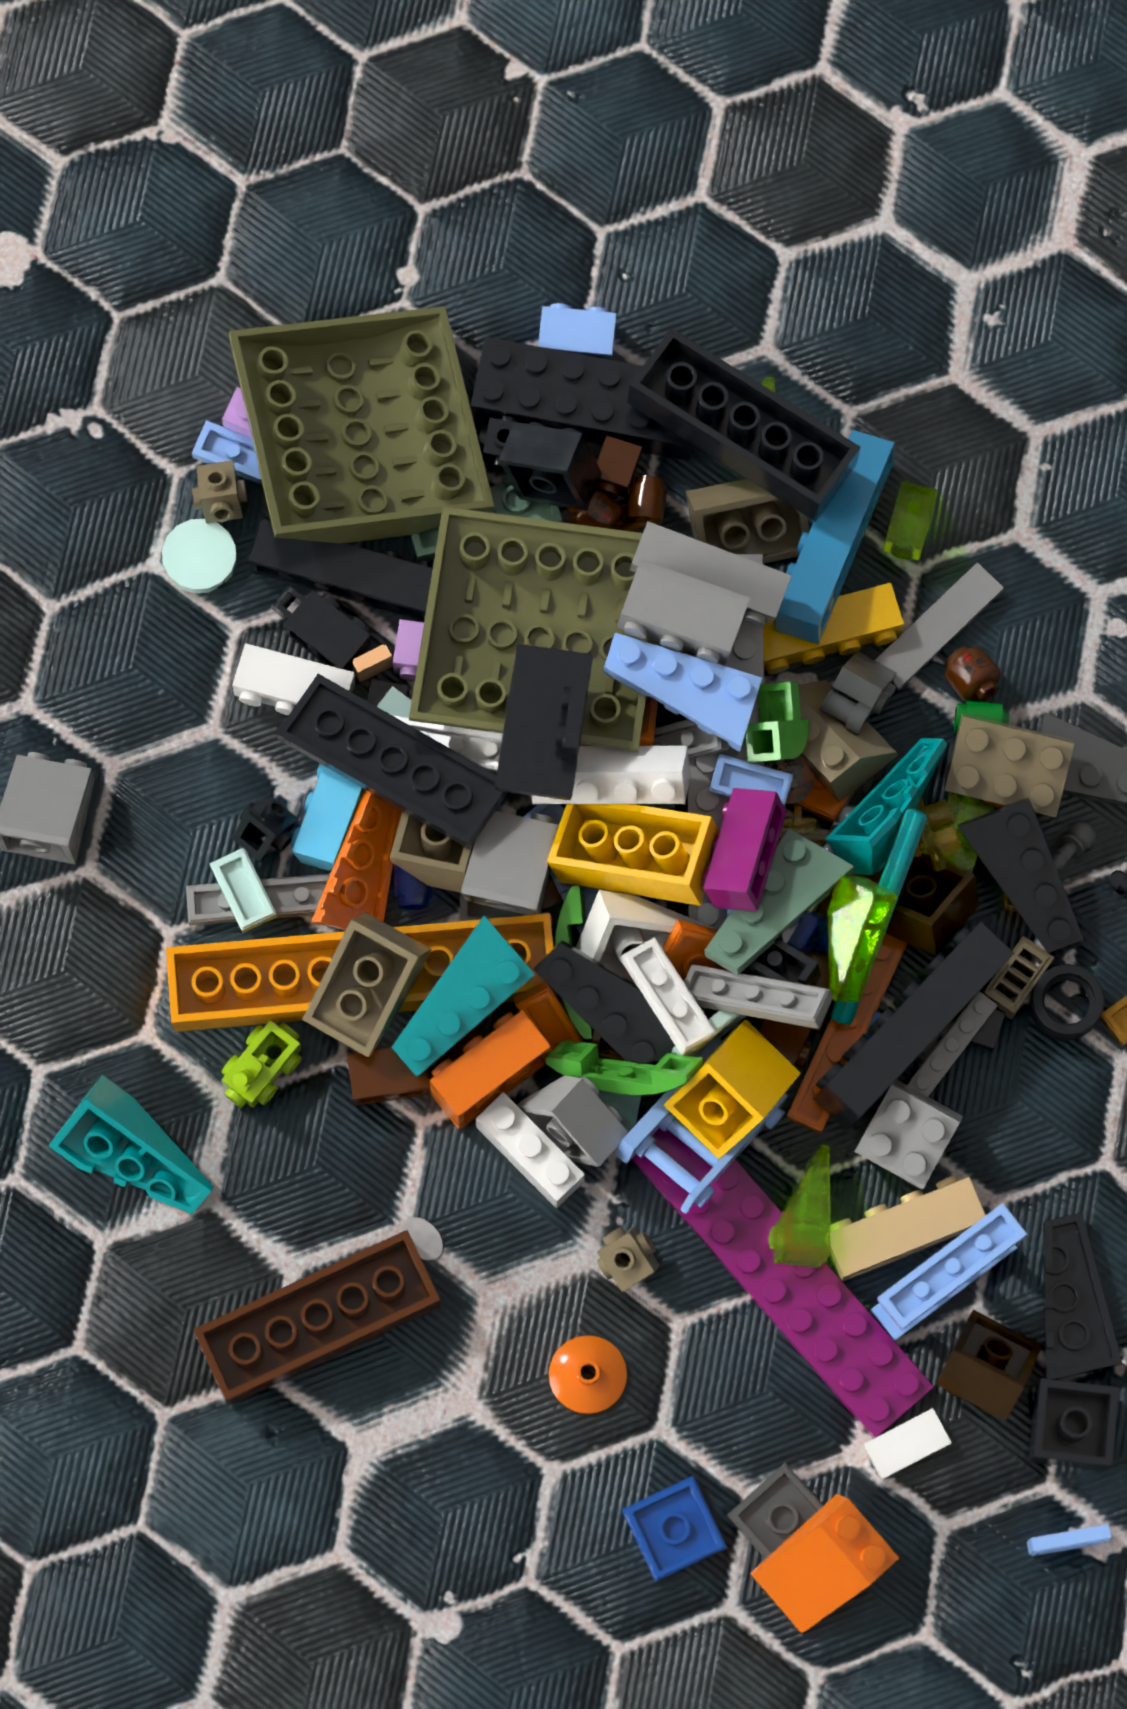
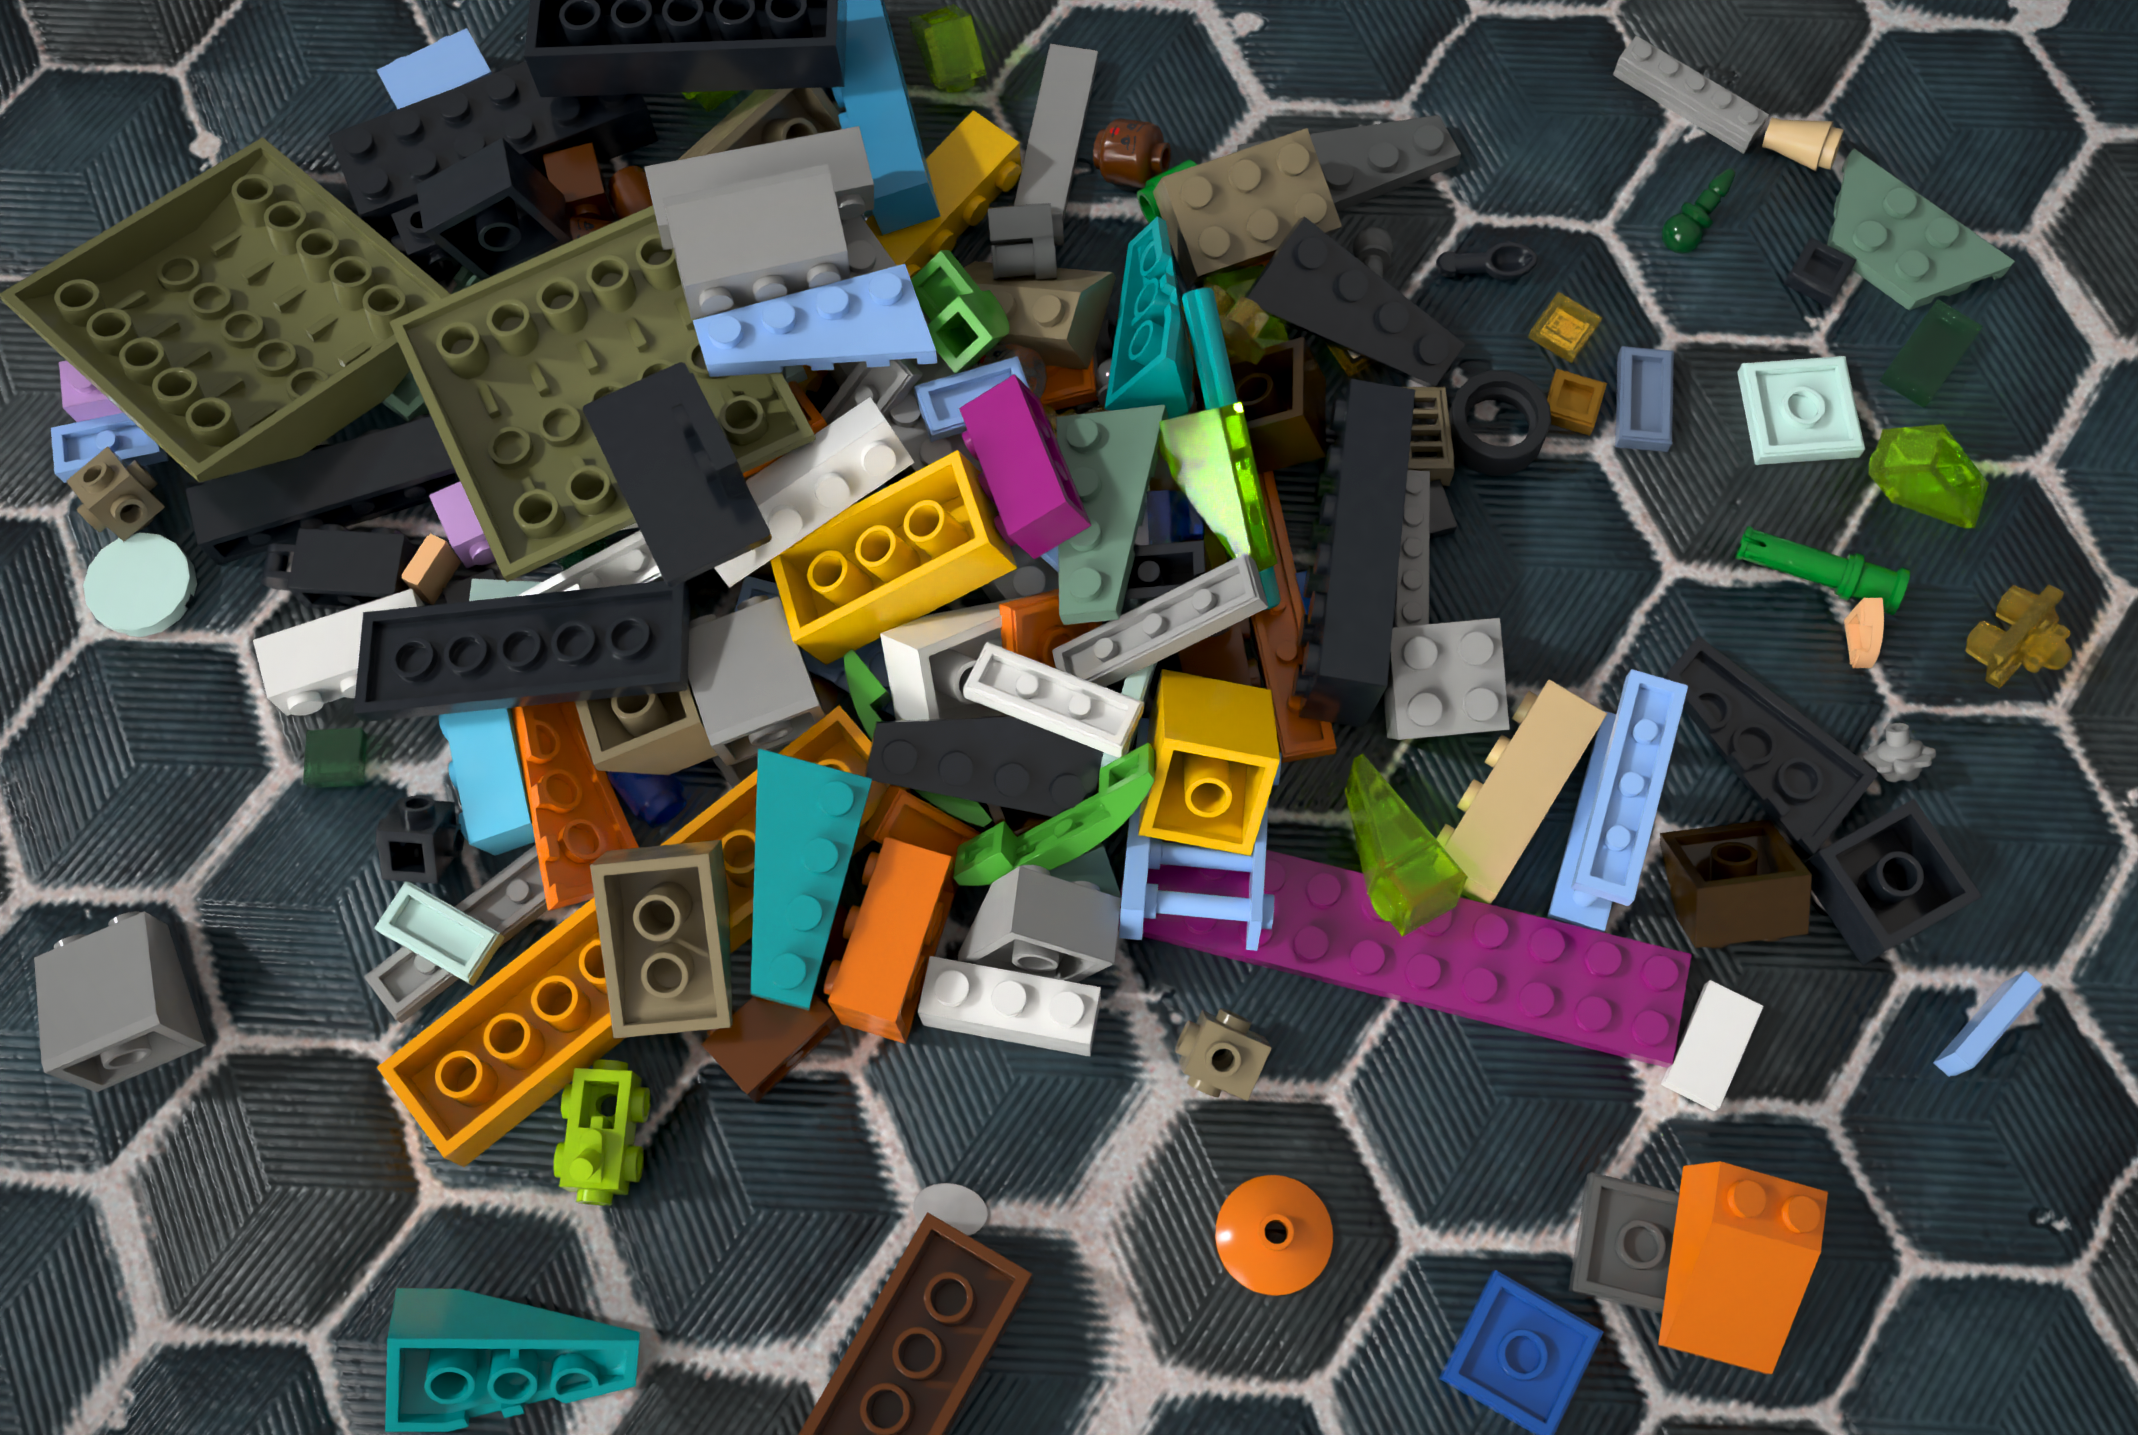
camera: 30 degrees left, 5 degrees down
(247, 742) = (335, 757): none -> clear green tile

